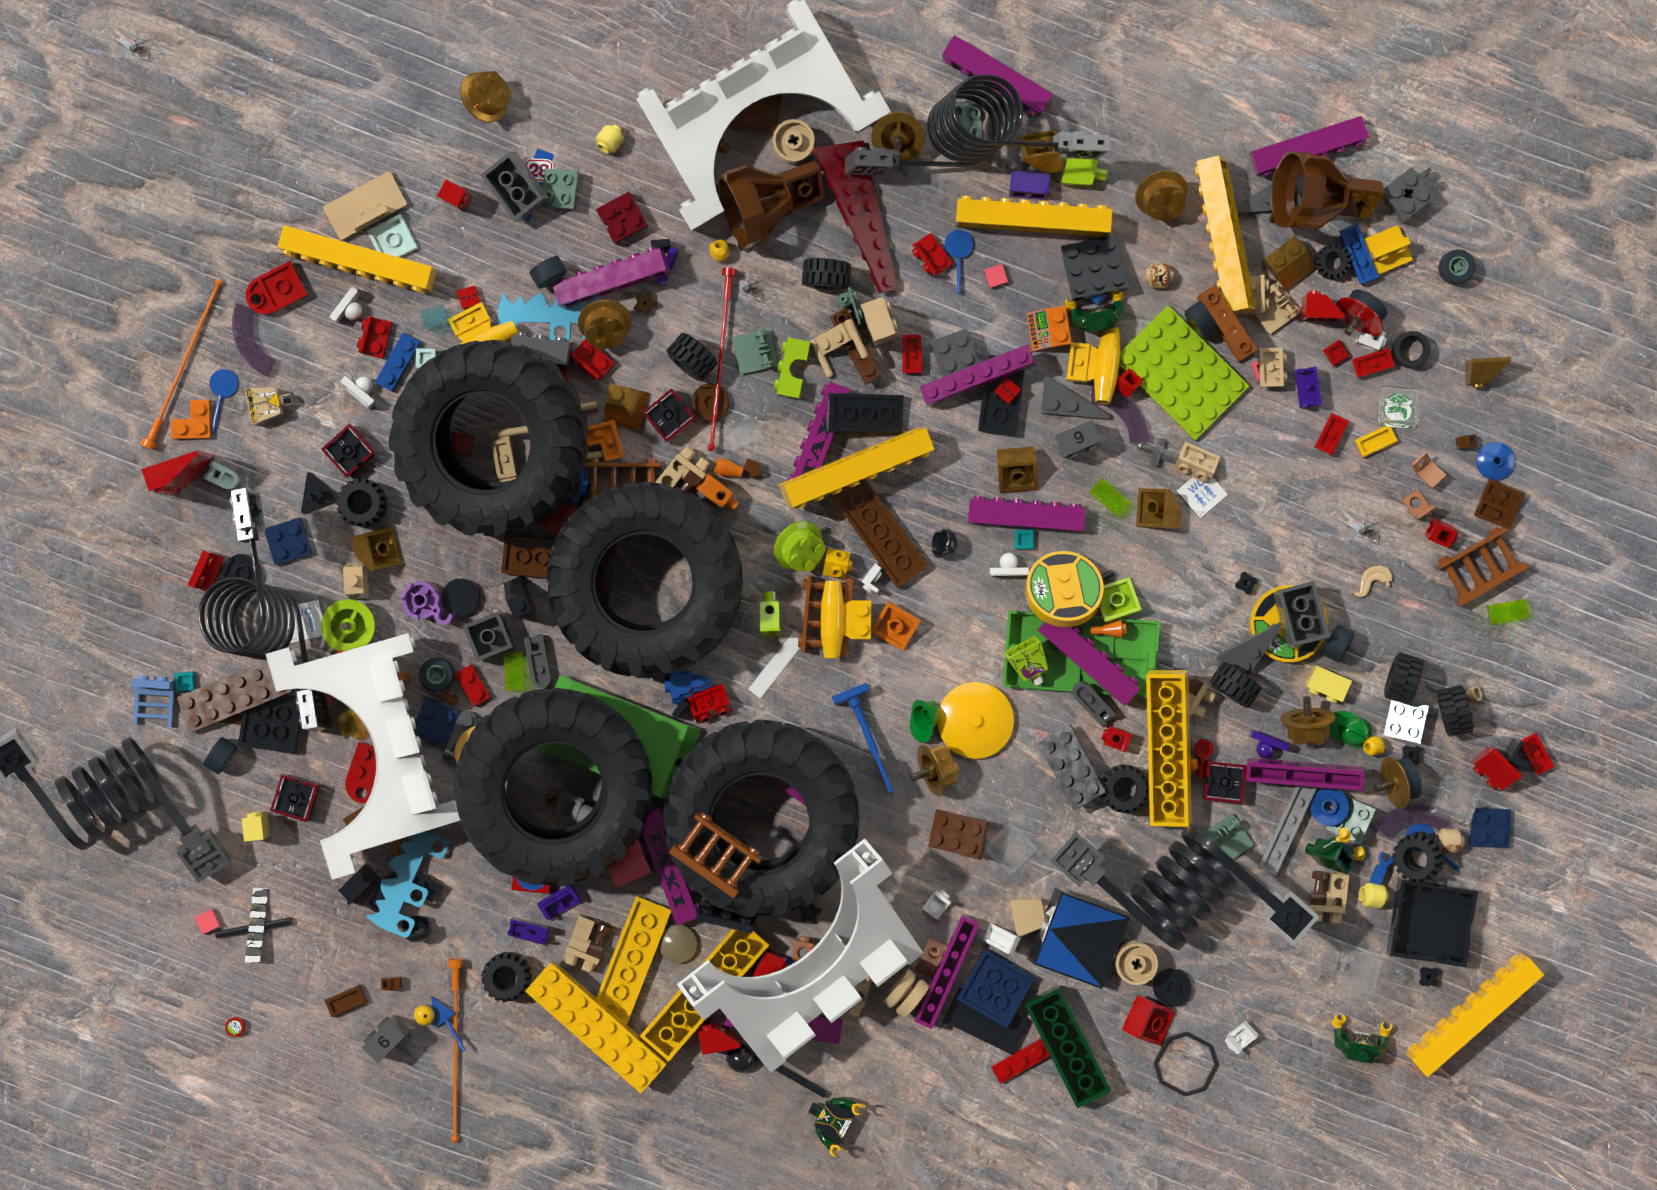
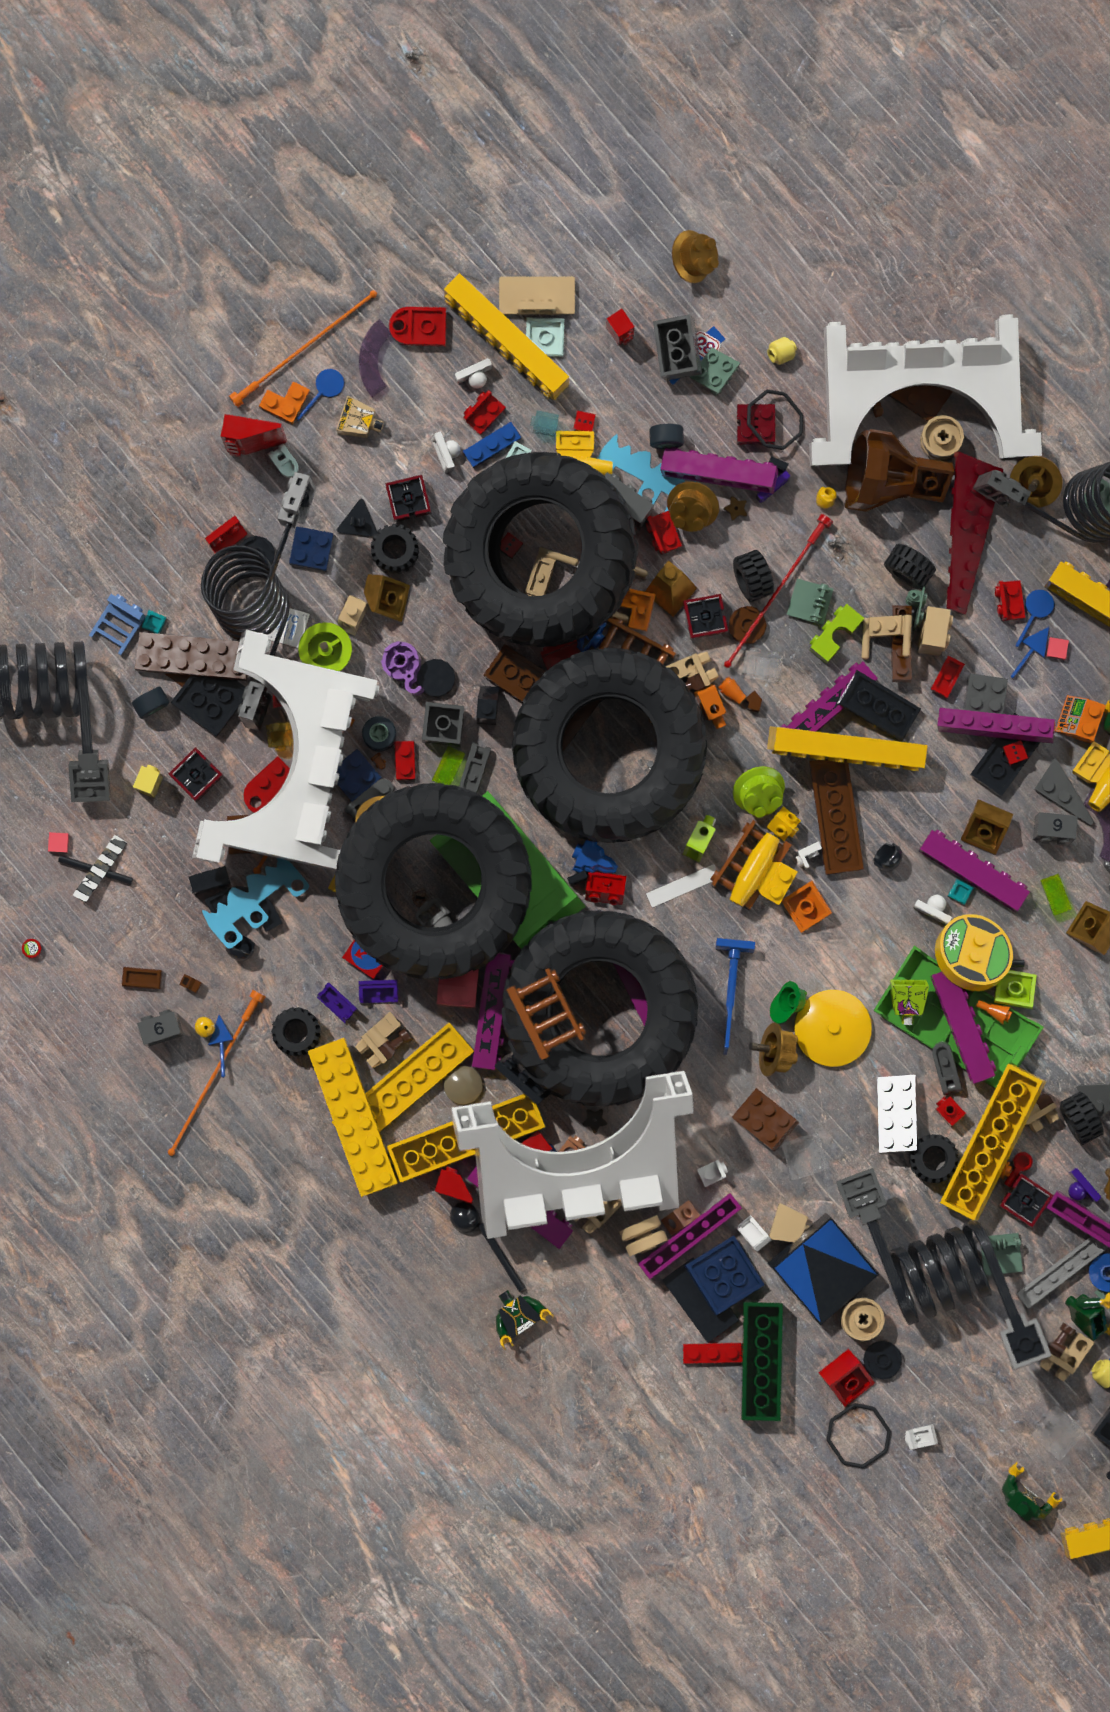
camera: 30 degrees right, 5 degrees down
(625, 226) = (757, 434): none -> black piece
(975, 281) = (1037, 643): none -> blue piece

